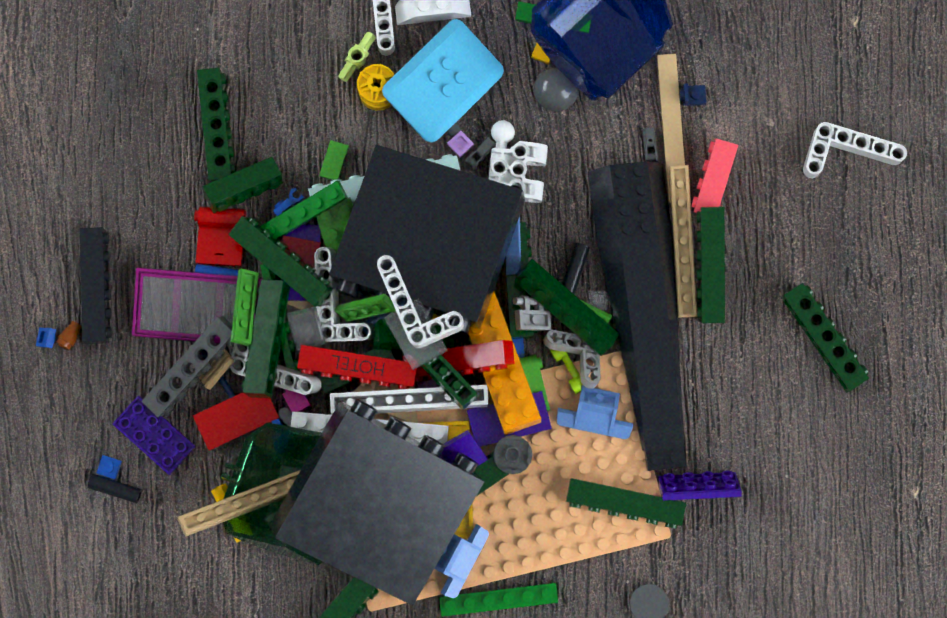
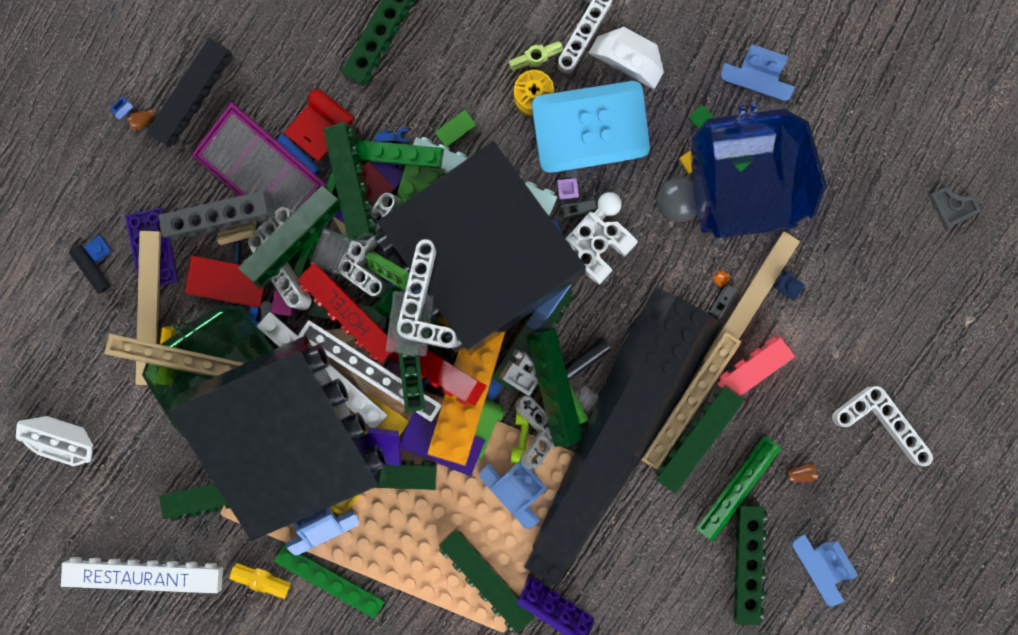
camera: 35 degrees right, 5 degrees up
(183, 478) = (148, 293): none -> tan tile
(242, 185) = (365, 96): dark green brick -> none
(244, 307) = (291, 198): bright green tile -> none
(512, 454) = (422, 476): dark grey tile -> none
(635, 127) = (721, 278): none -> orange hinge
(772, 284) = (738, 488): none -> green plate
(815, 234) = (804, 473): none -> dark orange cone
(887, 295) = (826, 567): none -> medium blue plate

